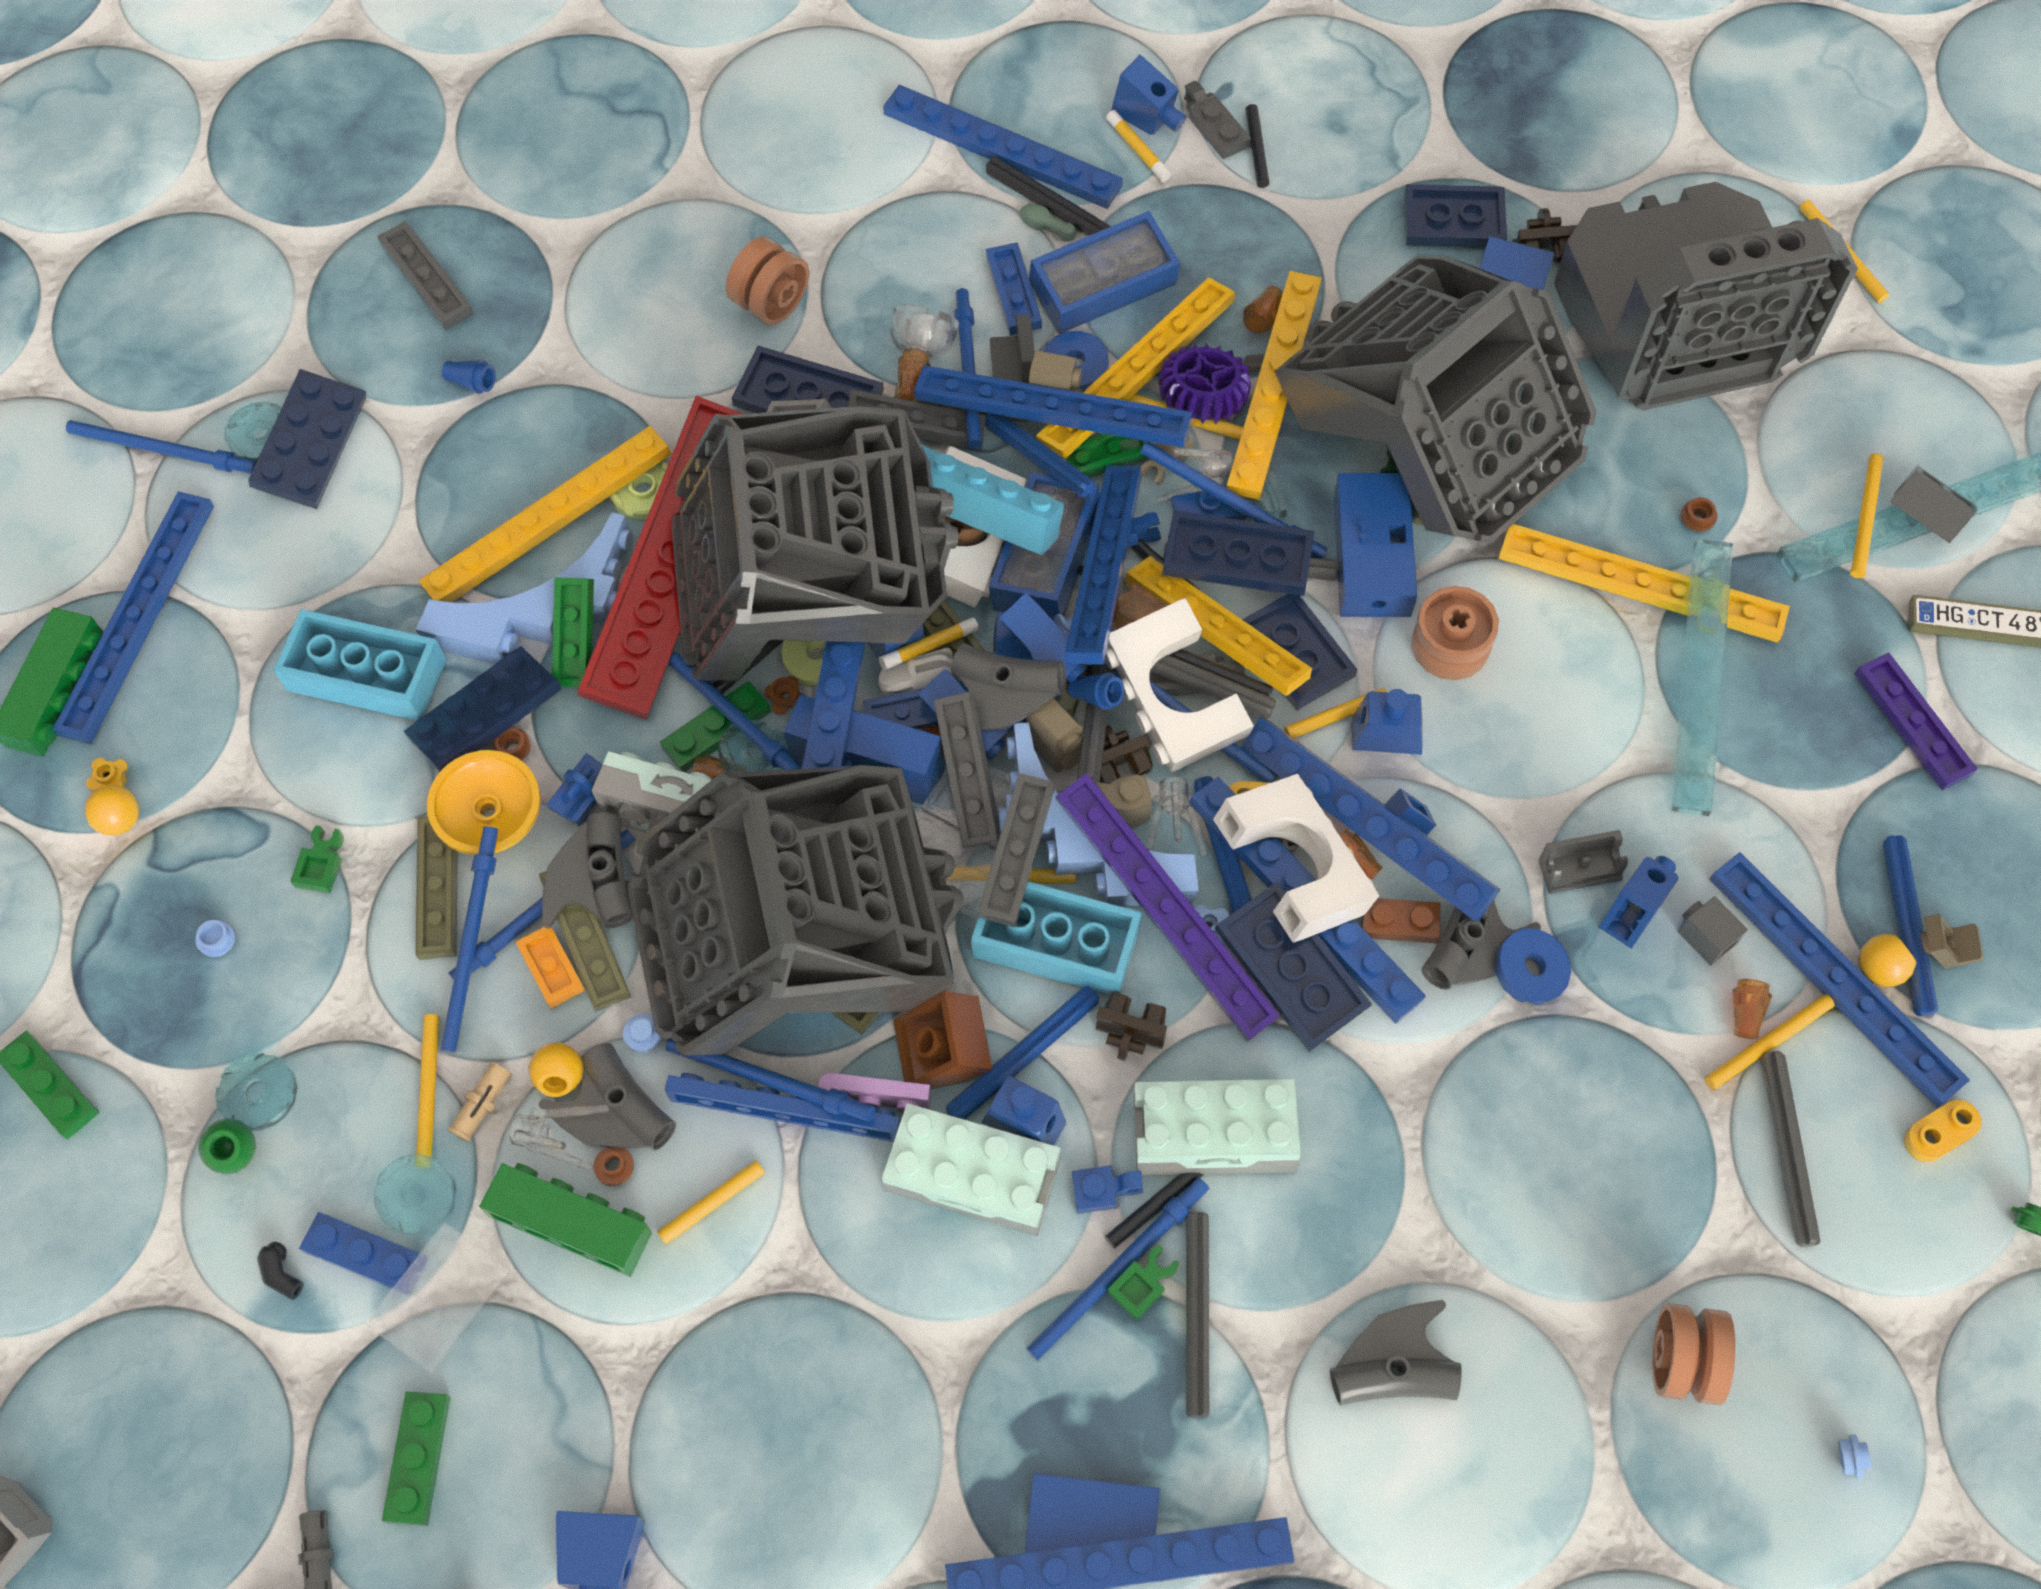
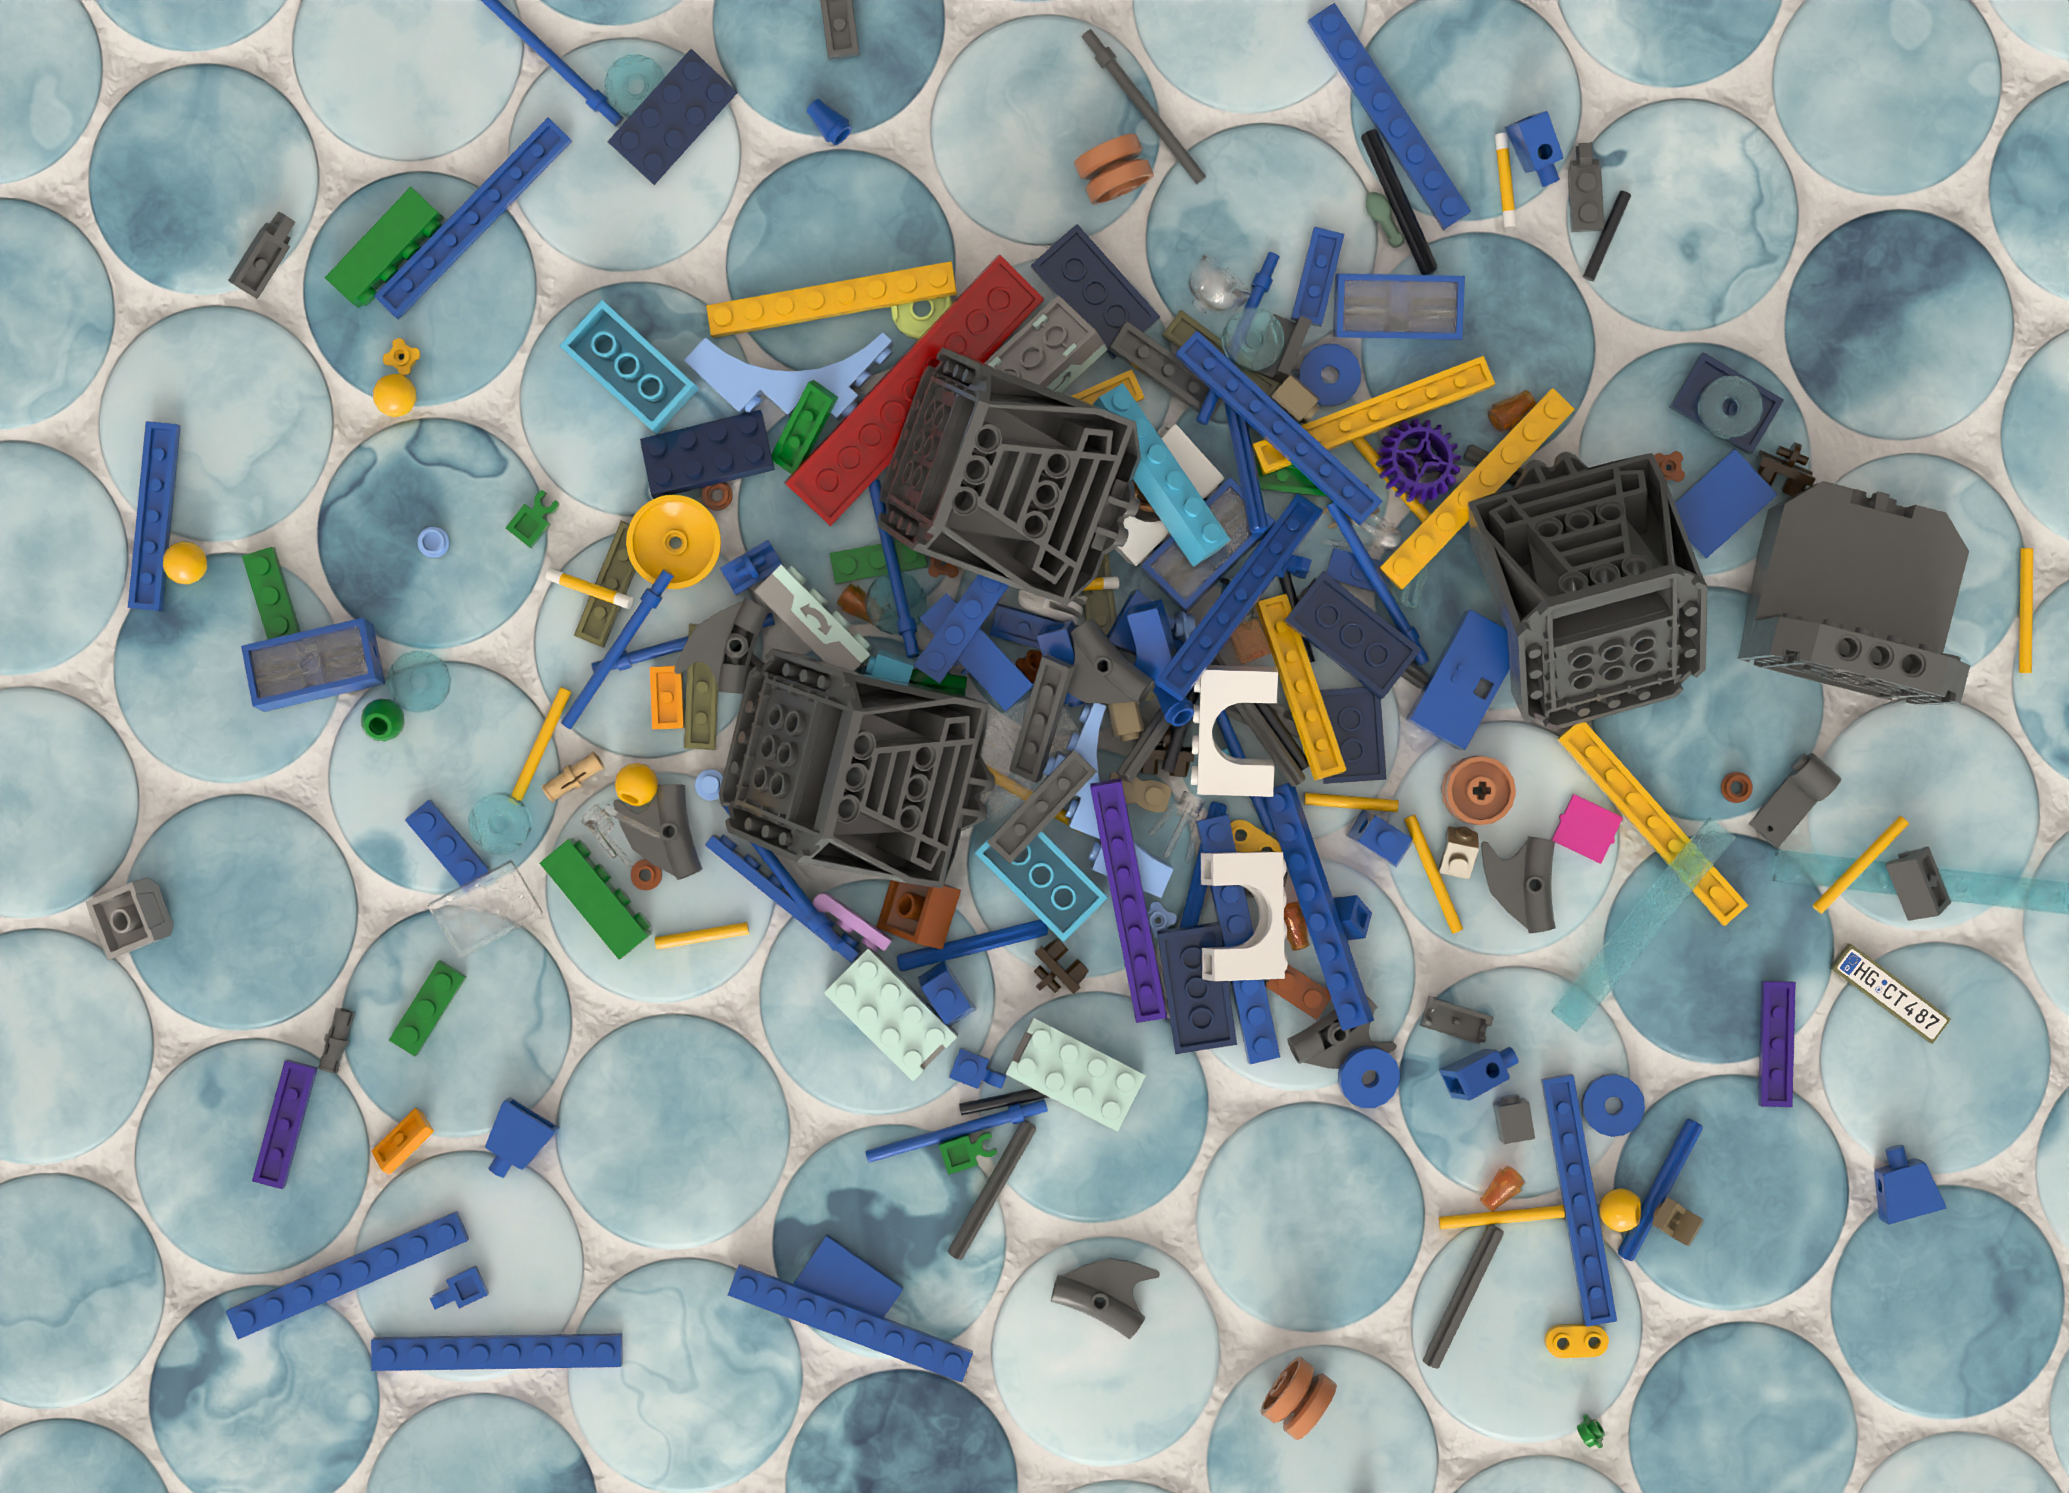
camera: 25 degrees right, 25 degrees up
(119, 1127) = (312, 664): none -> brick
(272, 1271) = (380, 827): black arm -> none
(411, 896) = (589, 588): none -> yellow bar
(713, 215) = (1106, 59): none -> dark grey bar
(909, 371) = (1185, 325): clear orange cone -> none
(983, 341) = (1270, 336): none -> clear light blue tile
(1122, 727) = (1177, 739): none -> black bar
(1465, 195) = (1749, 407): none -> clear light blue tile
(1473, 745) = (1433, 874): none -> yellow bar
(1476, 703) = (1459, 852): none -> bracket
(1559, 696) = (1510, 882): none -> dark grey pin
(1584, 624) = (1587, 828): none -> dark pink piece
(1761, 494) = (1794, 798): none -> dark grey door
(1811, 849) = (1625, 1118): none -> blue tile

